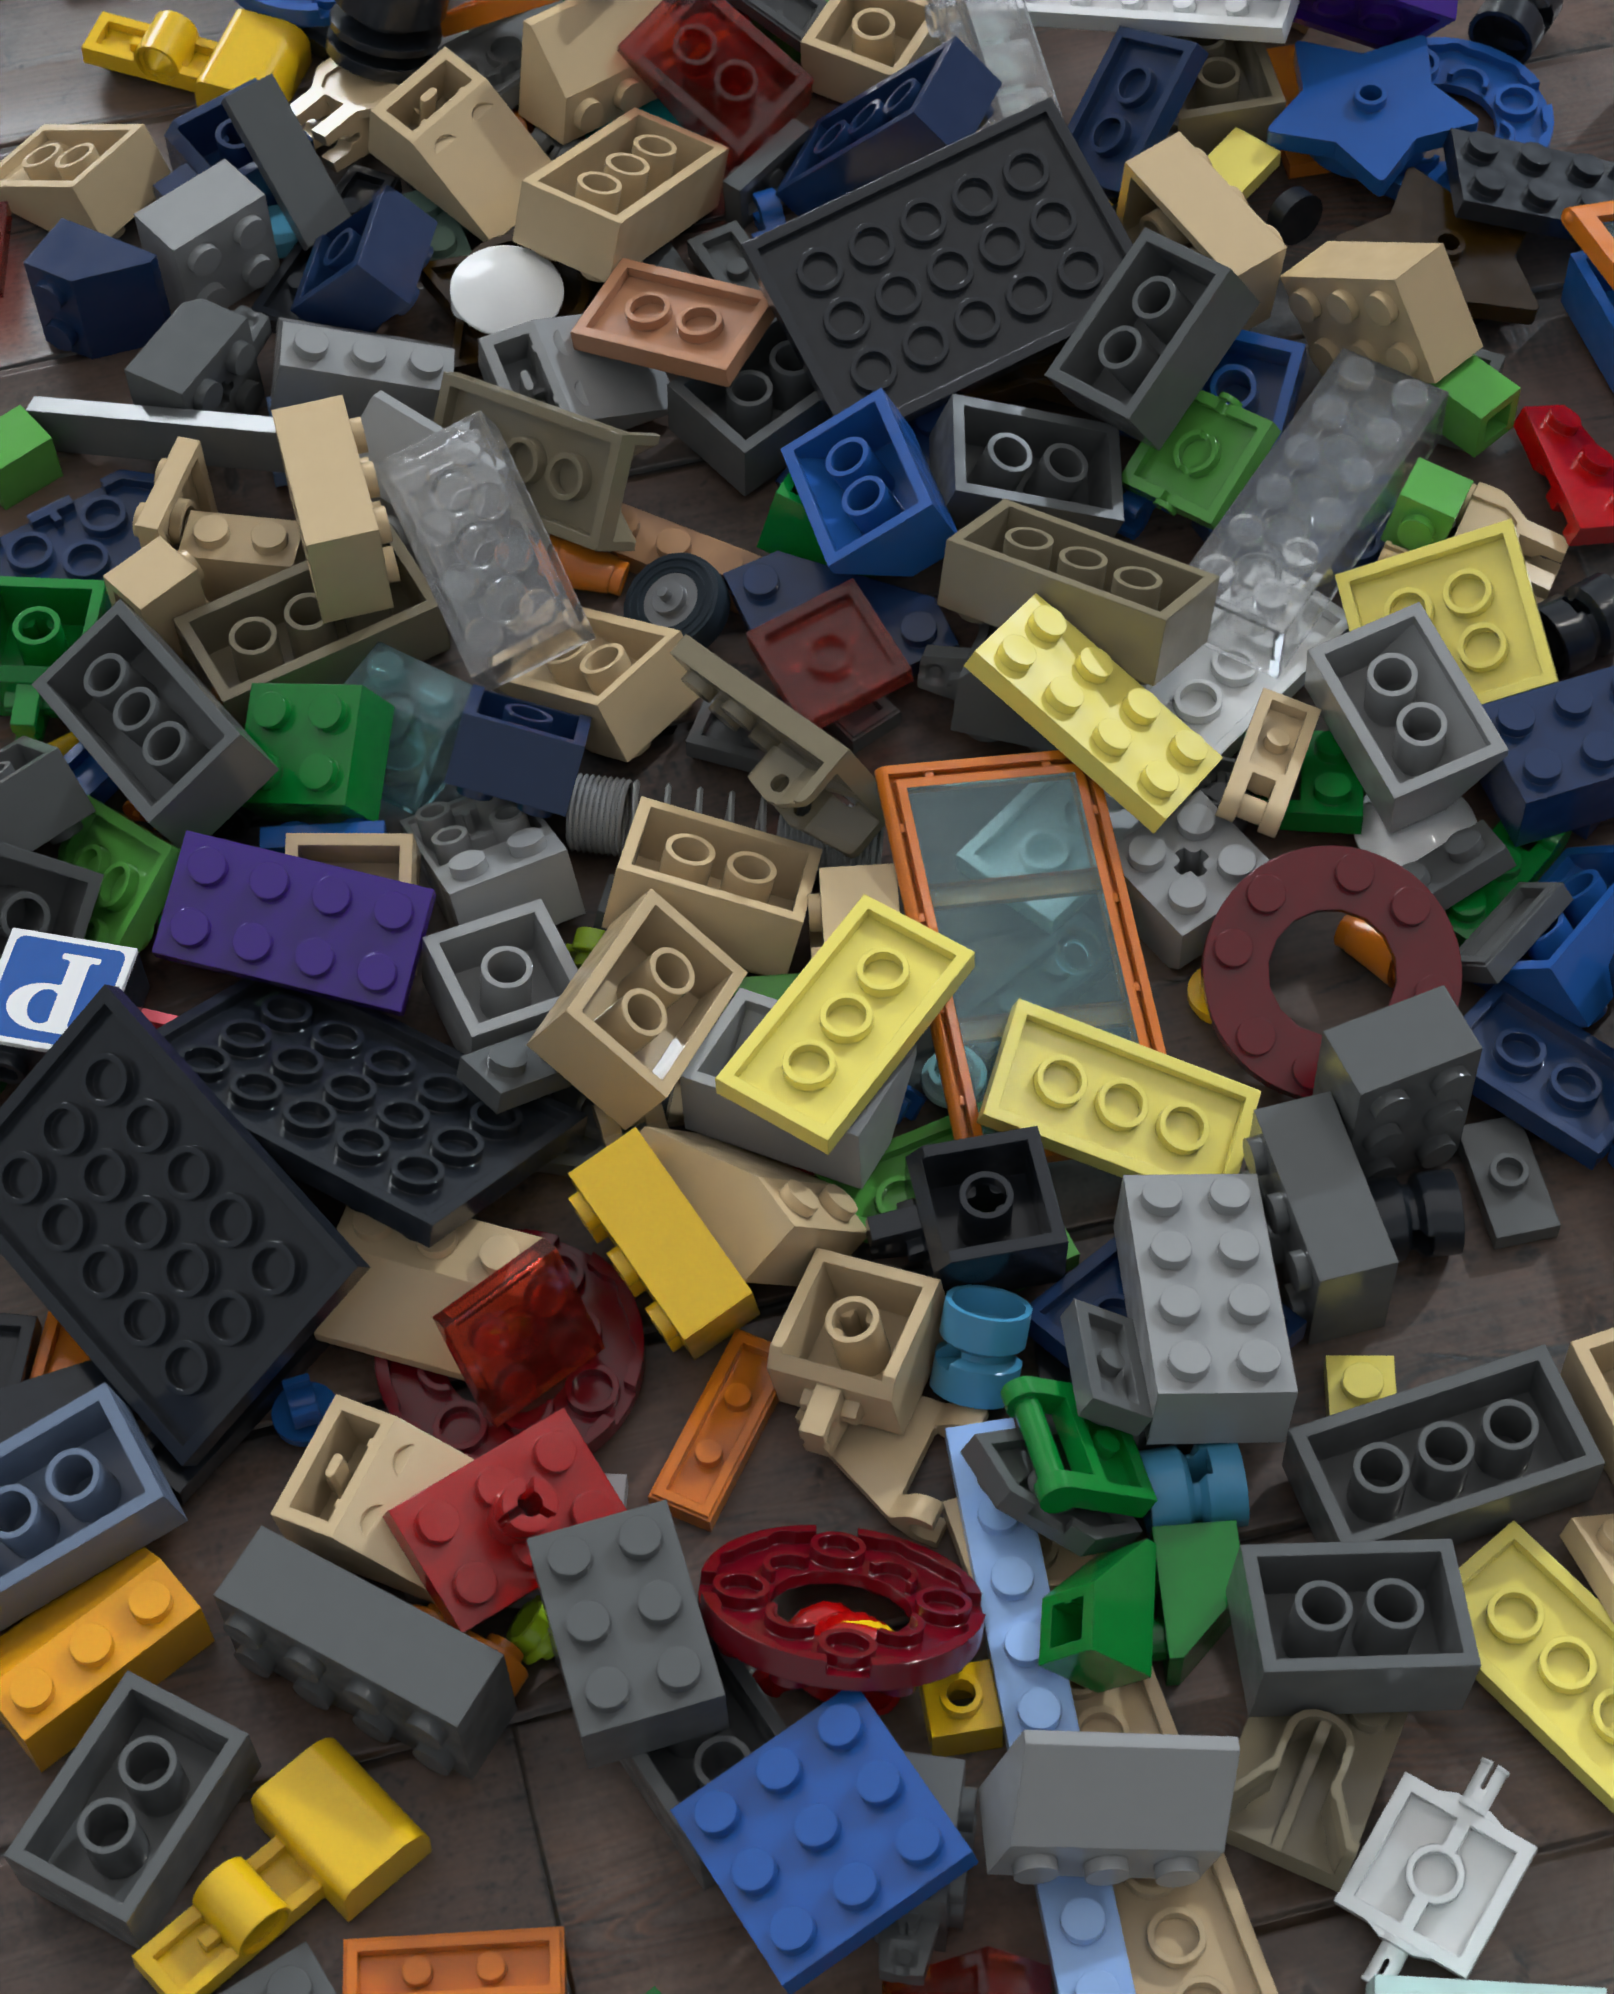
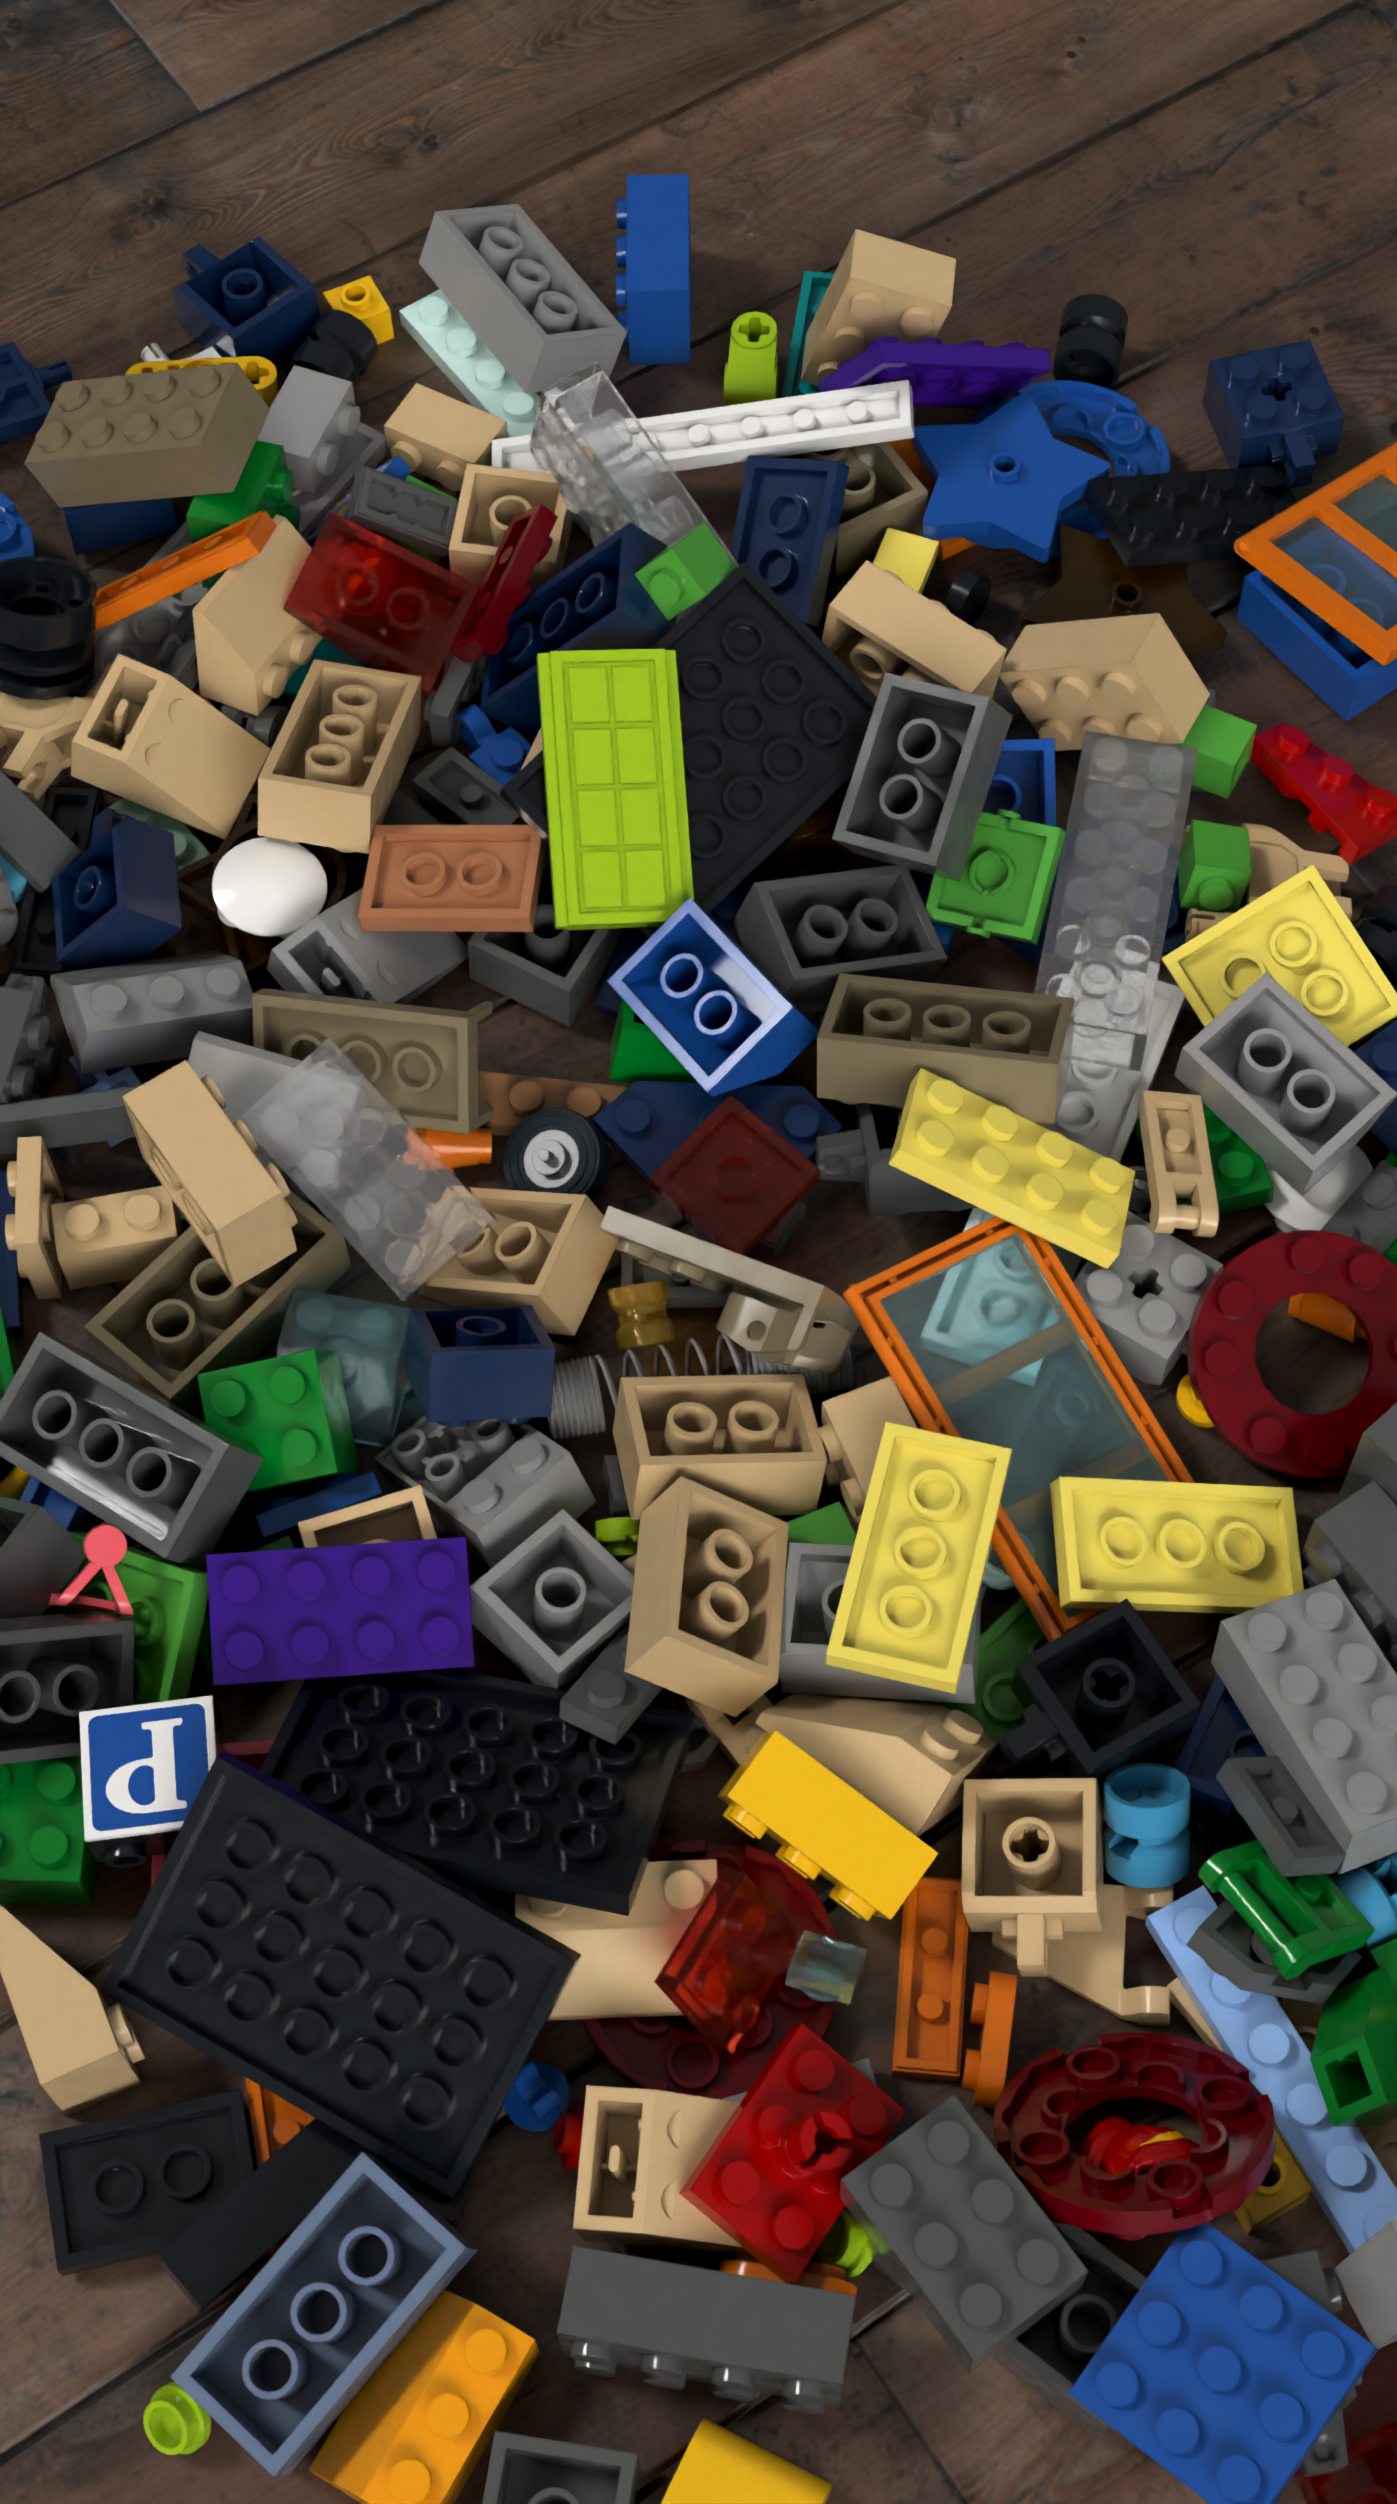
camera: 20 degrees left, 5 degrees up
(98, 799) = (103, 1548): none -> coral piece
(158, 587) = (56, 1300): tan brick -> none
(614, 1375) = (826, 1968): none -> clear light blue plate
(695, 756) = (642, 1314): none -> clear yellow wheel
(765, 1479) = (993, 2009): none -> orange plate
(837, 83) = (504, 584): none -> dark red plate
(849, 270) = (614, 787): none -> lime piece
(991, 91) = (686, 571): none -> bright green brick

